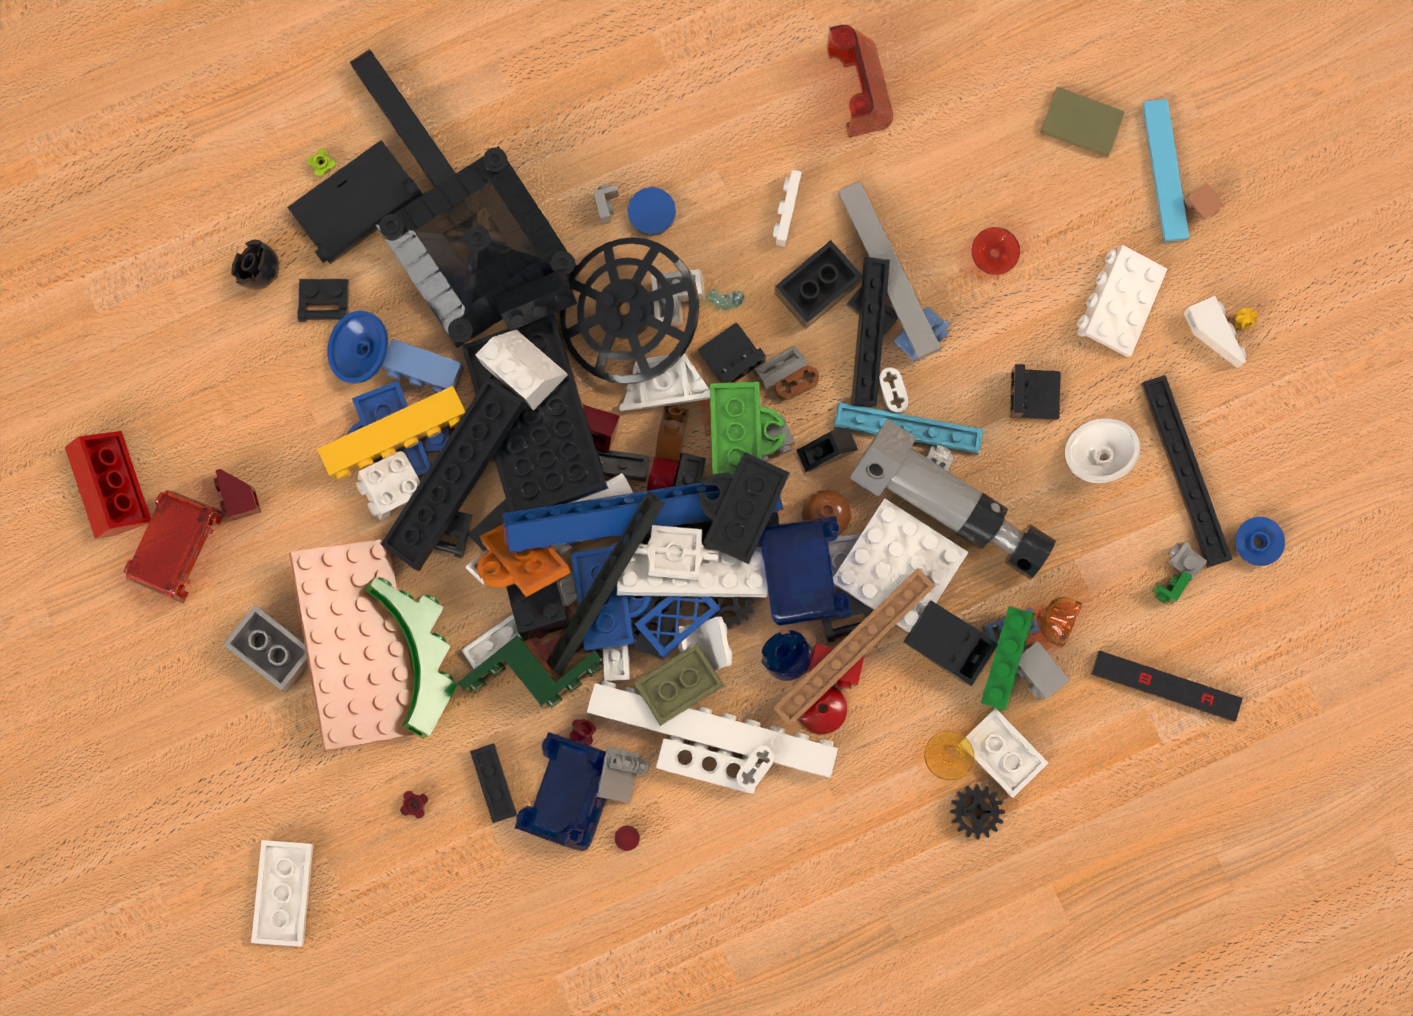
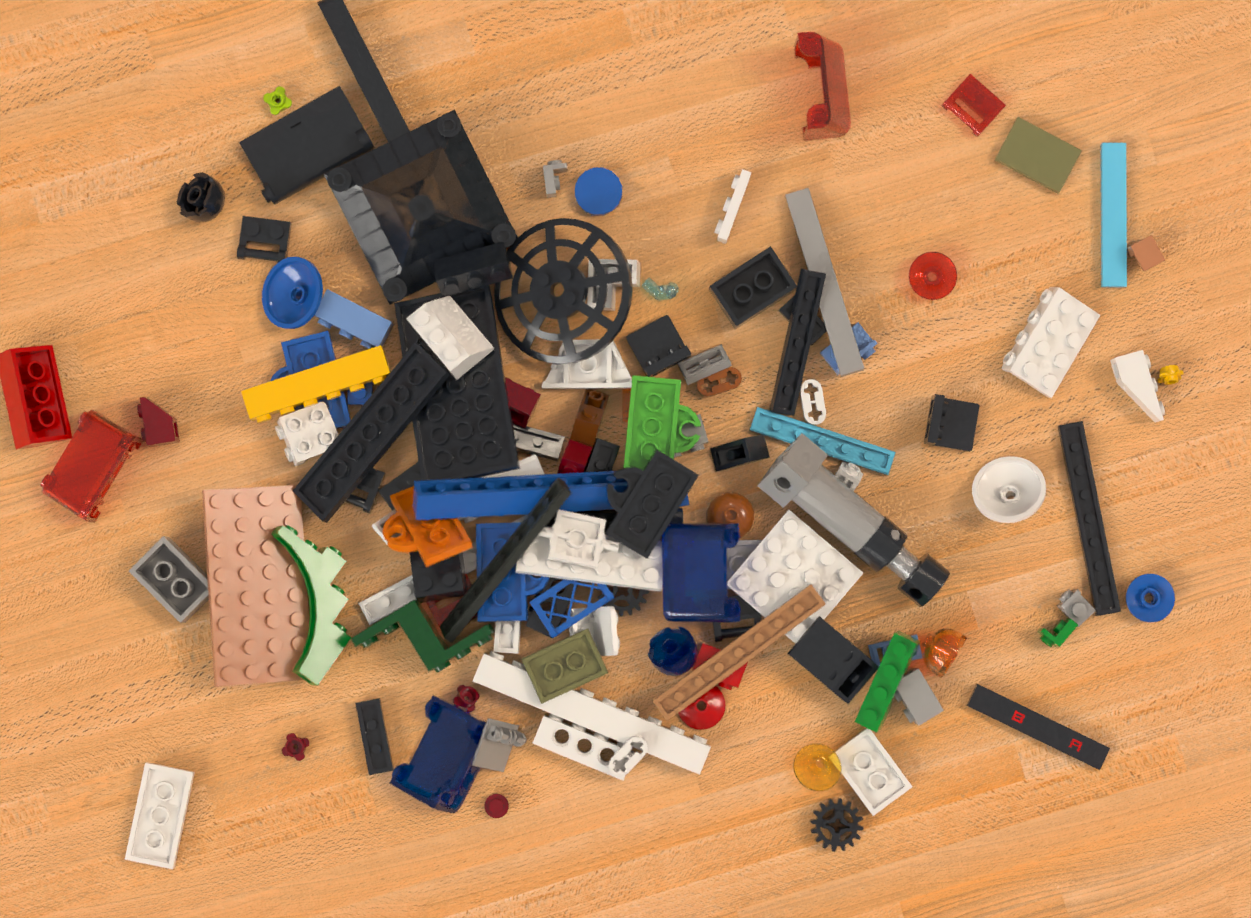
camera: 10 degrees right, 5 degrees up
(1014, 75) = (978, 99): none -> clear red plate

